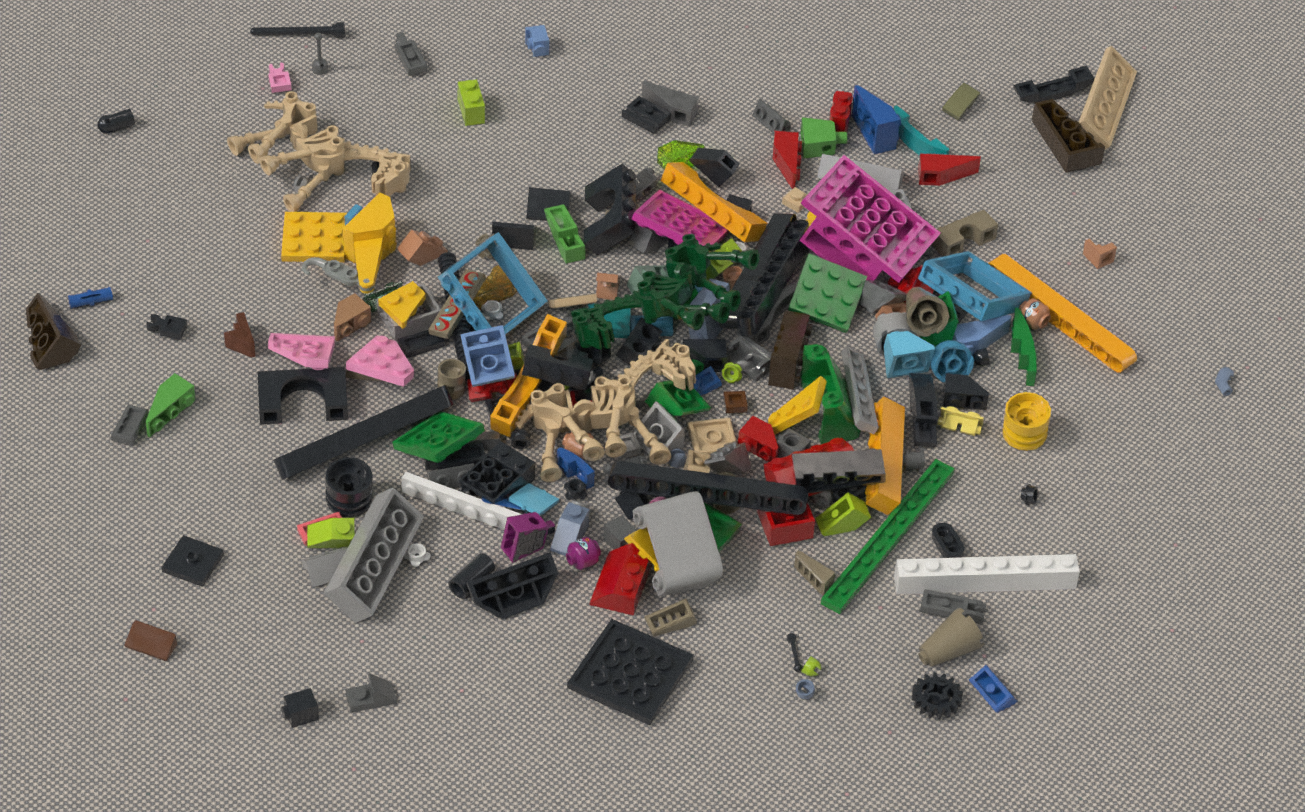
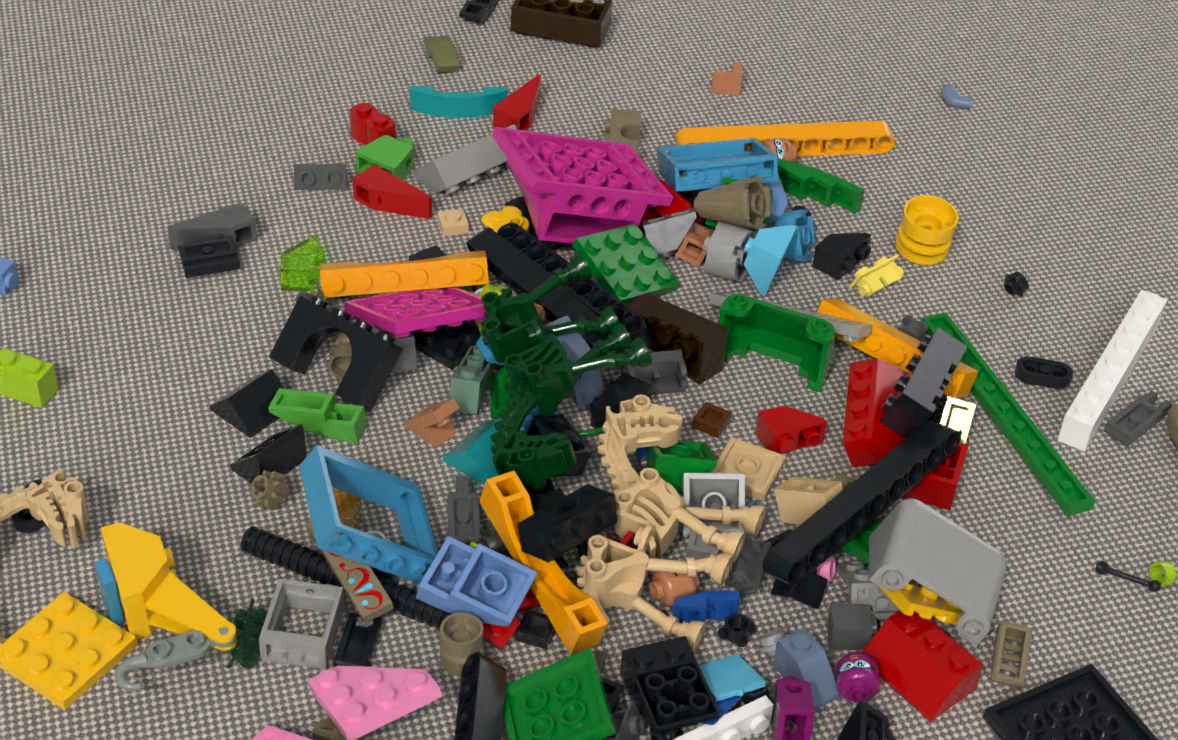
camera: 55 degrees left, 5 degrees down
(350, 316) = (247, 688): medium nougat slope -> none
(403, 303) = (299, 616): yellow wing -> none
(421, 248) = (207, 551): nougat slope -> none
(520, 439) = (615, 634): black bush -> none
(572, 301) = (442, 461): tan tile -> none
(714, 164) = (352, 243): black slope -> none
(726, 372) = (672, 396): lime plate -> none
(730, 458) = (820, 460): flat silver slope -> none
(791, 442) = (825, 405): dark grey brick -> none
(799, 407) = (786, 367): yellow wing -> none
(814, 572) = (1024, 494): dark tan slope -> none
(875, 121) = (417, 108): blue slope -> none
(924, 409) = (841, 282): black slope -> none

